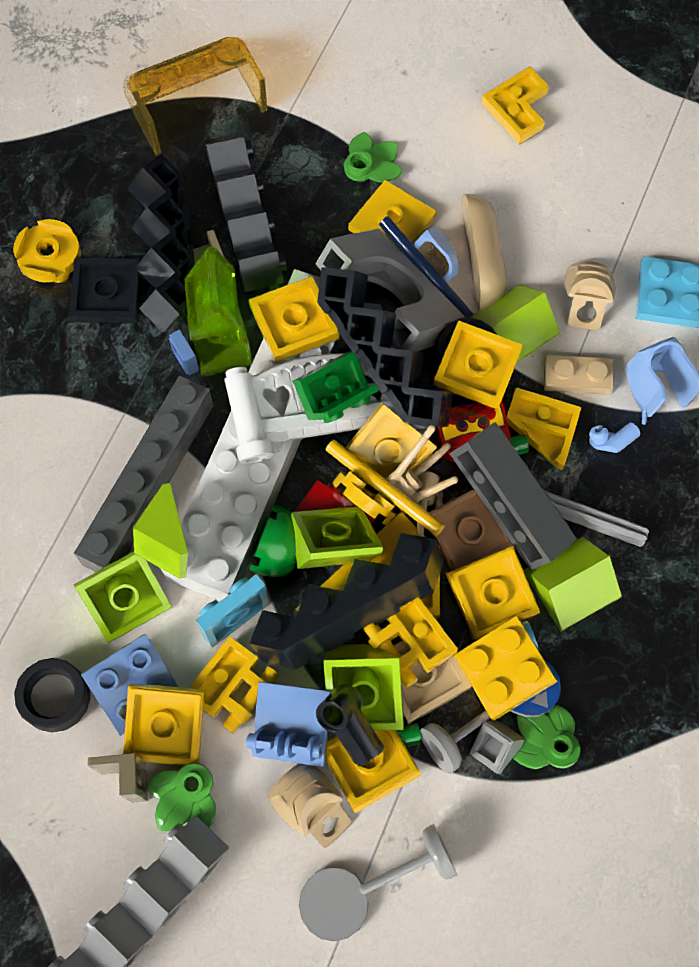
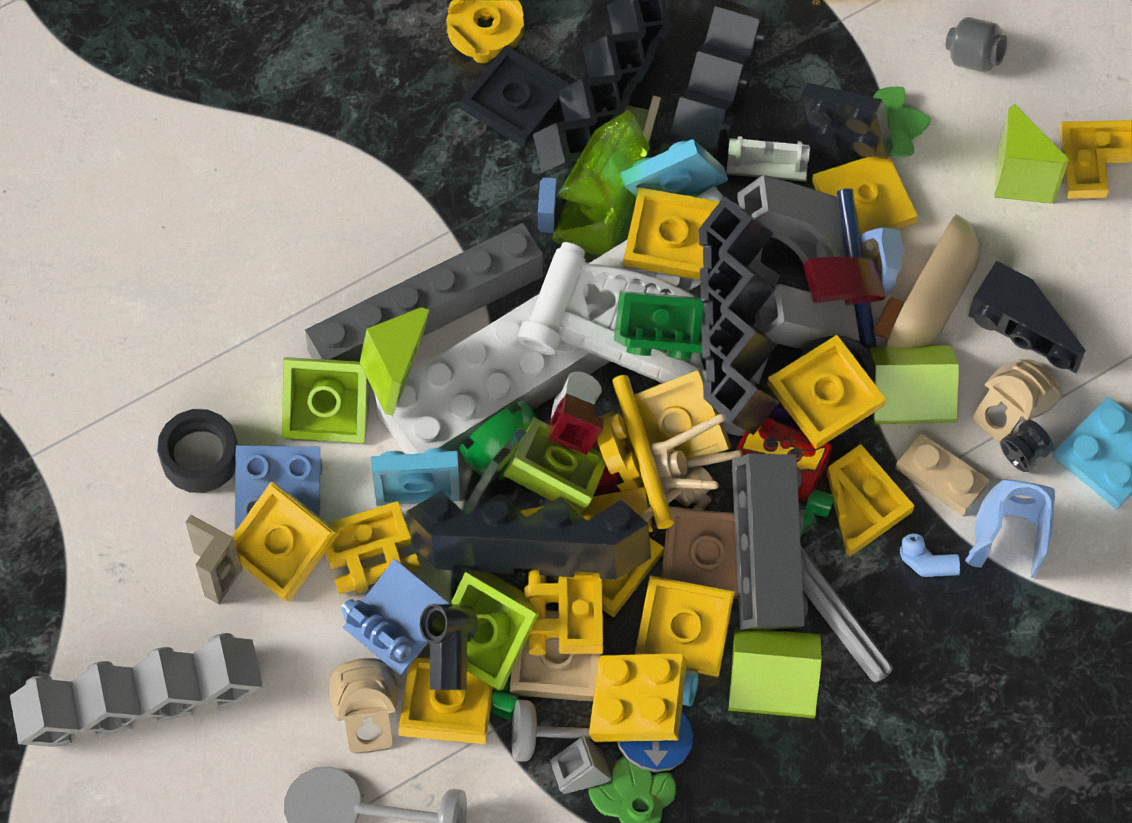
camera: 35 degrees right, 5 degrees down
(178, 801) = (248, 620): bright green plate -> none
(268, 272) = (681, 170): none -> medium azure plate
(294, 572) = (494, 471): none -> clear smoke piece
(311, 231) = (767, 158): none -> white hinge
(319, 491) = (573, 415): none -> dark red leg
(351, 171) = (847, 121): none -> black plate
(391, 76) = (976, 44): none -> dark grey head
(429, 281) = (845, 279): none -> dark red slope
(471, 290) = (888, 318): none -> reddish brown tile
(483, 130) = (1027, 161): none -> lime slope
(549, 233) = (1021, 312): none -> black slope
(620, 320) = (1026, 445): none -> black wheel

